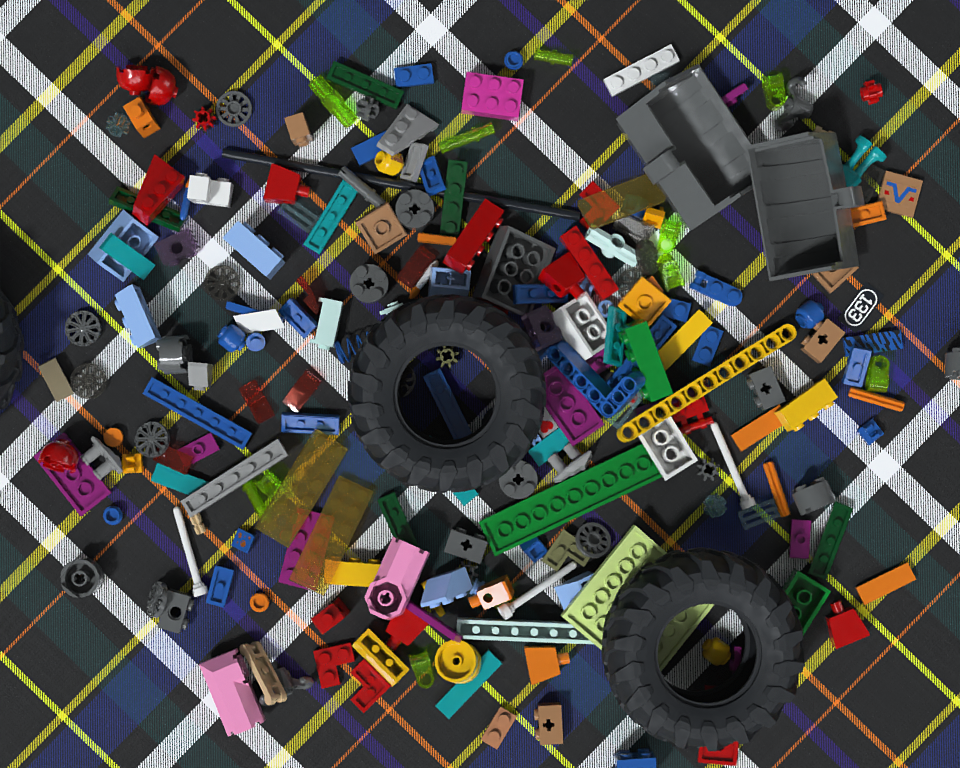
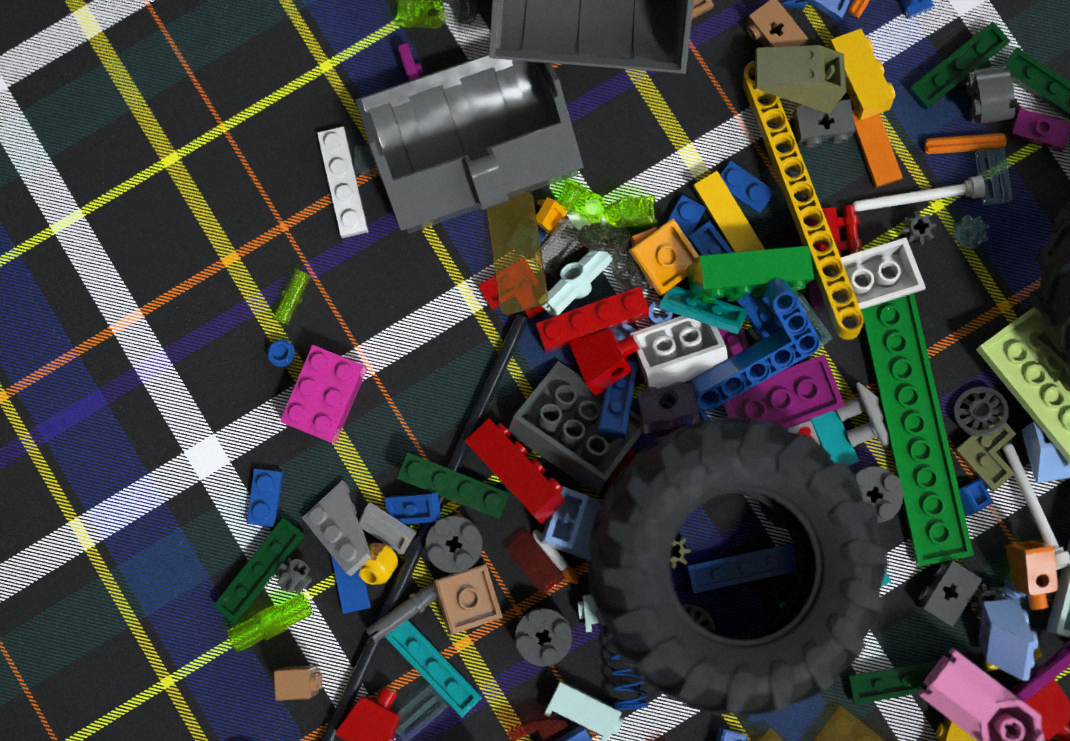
camera: 70 degrees left, 5 degrees down
(436, 239) = (504, 523): orange tile -> none
(474, 134) = (372, 445): clear neon green pin -> none
(716, 289) = (671, 155): blue plate -> none
(792, 362) = (802, 75): none -> olive slope
(809, 314) = (736, 39): blue head -> none
(830, 471) = (958, 65): none -> dark green plate

